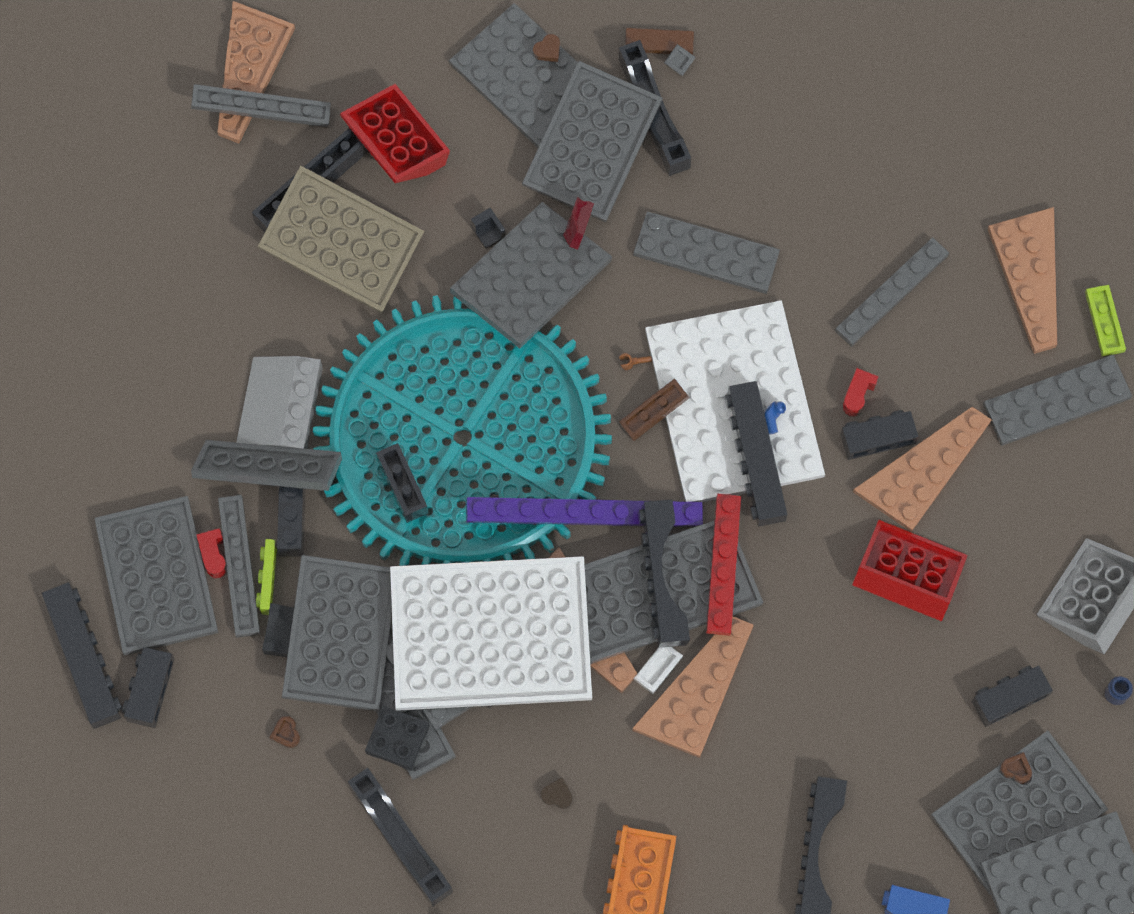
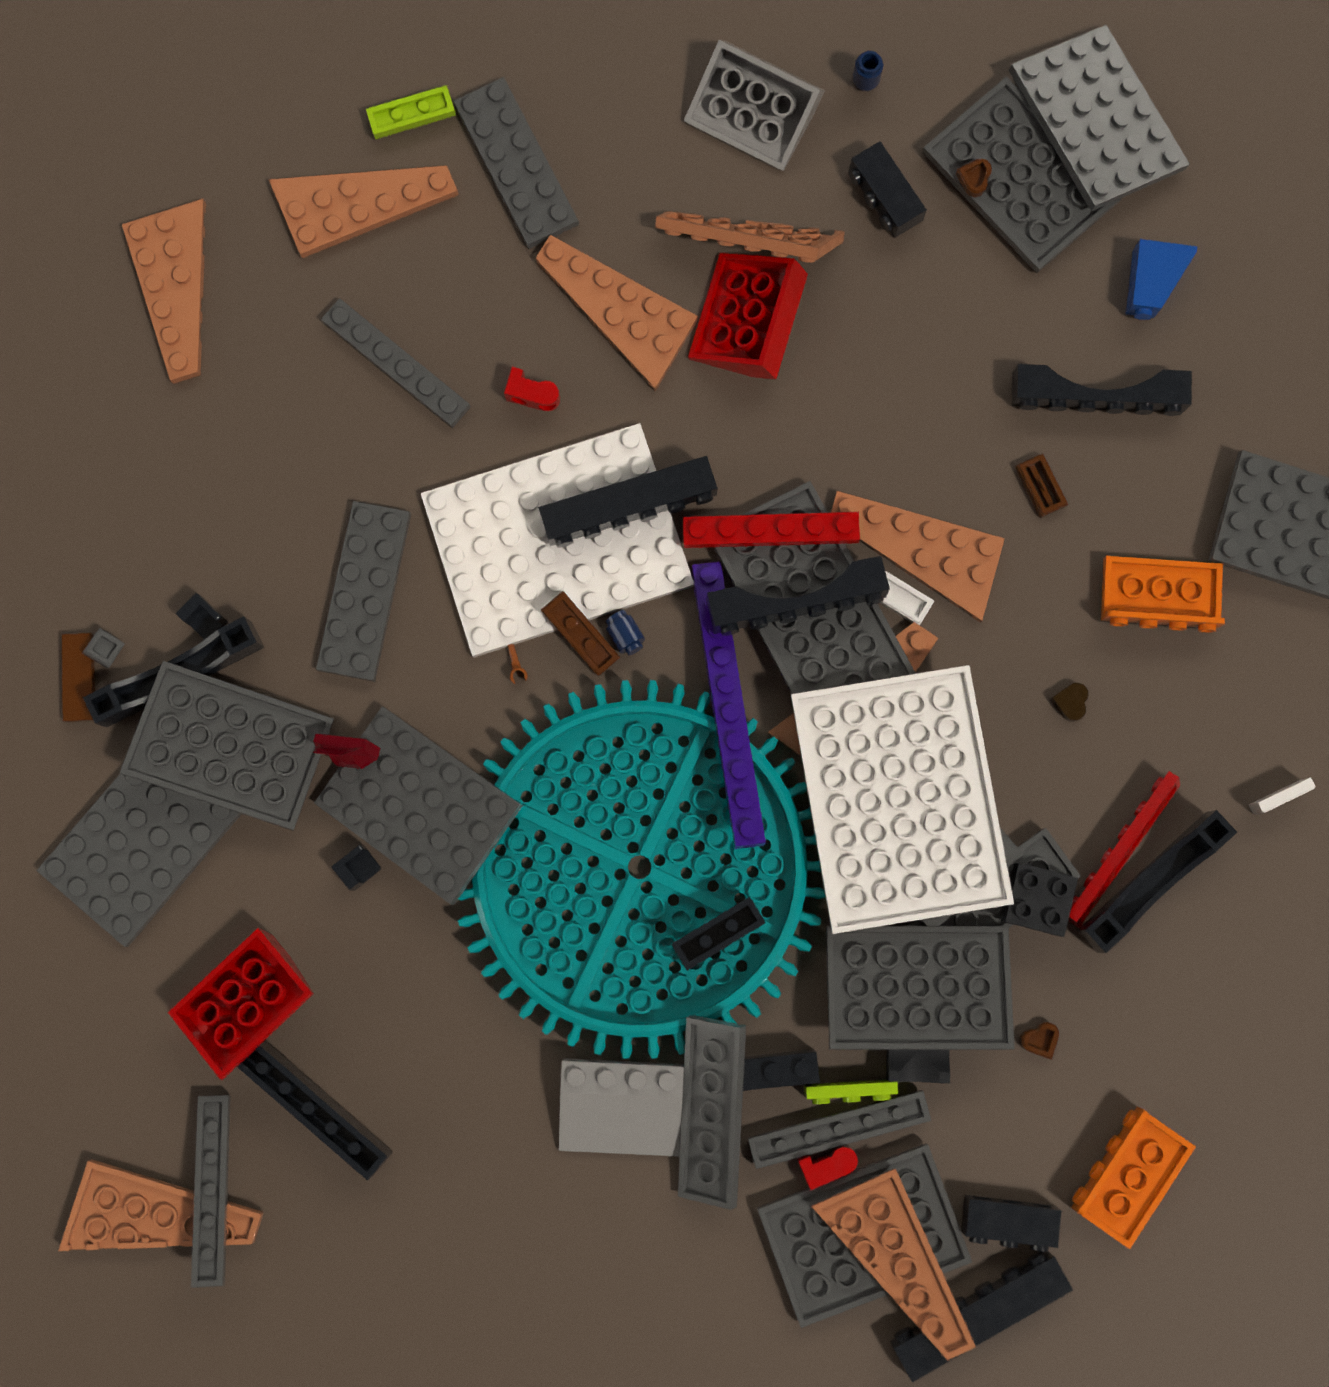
camera: 95 degrees left, 10 degrees up
(144, 589) = (890, 1243): none -> nougat wing
(169, 787) = (1132, 1176): none -> orange bracket
(340, 239) = (392, 1057): dark tan plate -> none
(430, 817) = (1130, 838): none -> red plate
(547, 49) = (102, 817): reddish brown tile -> none
(651, 444) = (625, 633): none -> dark blue brick
(698, 132) = (201, 616): none -> black panel
(723, 801) = (1036, 500): none -> reddish brown tile
(772, 413) = (572, 488): blue arm -> none
(879, 434) = (583, 363): black brick -> none
(974, 585) = (753, 235): none -> nougat wing
(981, 129) = (171, 275): none -> nougat wing

